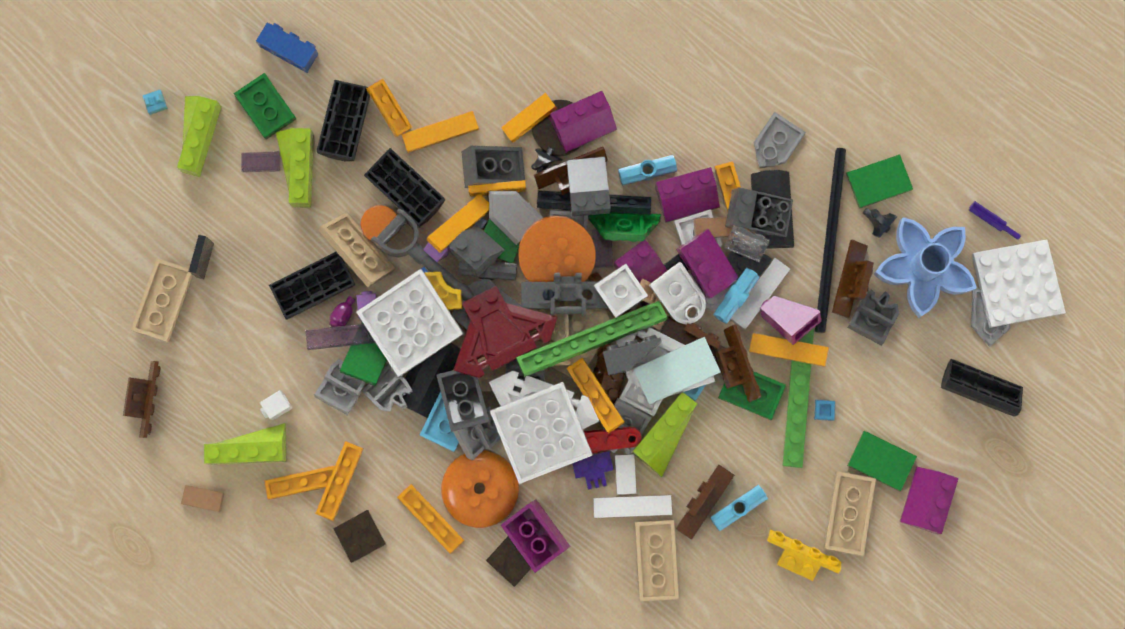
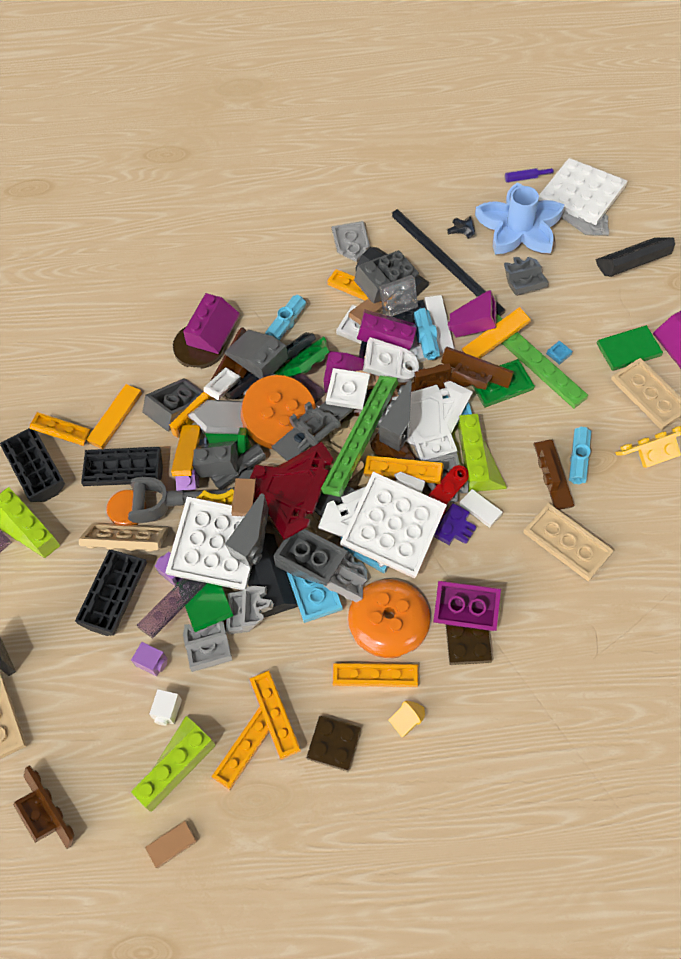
camera: 40 degrees left, 20 degrees down
(295, 361) = (149, 659): none -> medium lavender brick
(341, 313) = (154, 591): magenta plant -> none
(422, 568) = (407, 717): none -> yellow tile
(429, 349) = (248, 538): none -> dark grey slope
(458, 309) = (243, 496): none -> medium nougat tile
(507, 253) = (242, 439): none -> green tile
(529, 117) = (171, 355): light orange tile -> none
(539, 187) = (222, 384): none -> white tile
(544, 159) = (208, 367): black piece -> none
(632, 506) = (509, 524): white tile -> none
(677, 370) = (440, 405): light aqua tile -> none
(687, 194) = (326, 309): magenta slope -> none
(853, 280) = (488, 265): reddish brown bracket -> none
(879, 181) = (437, 210): green tile -> none

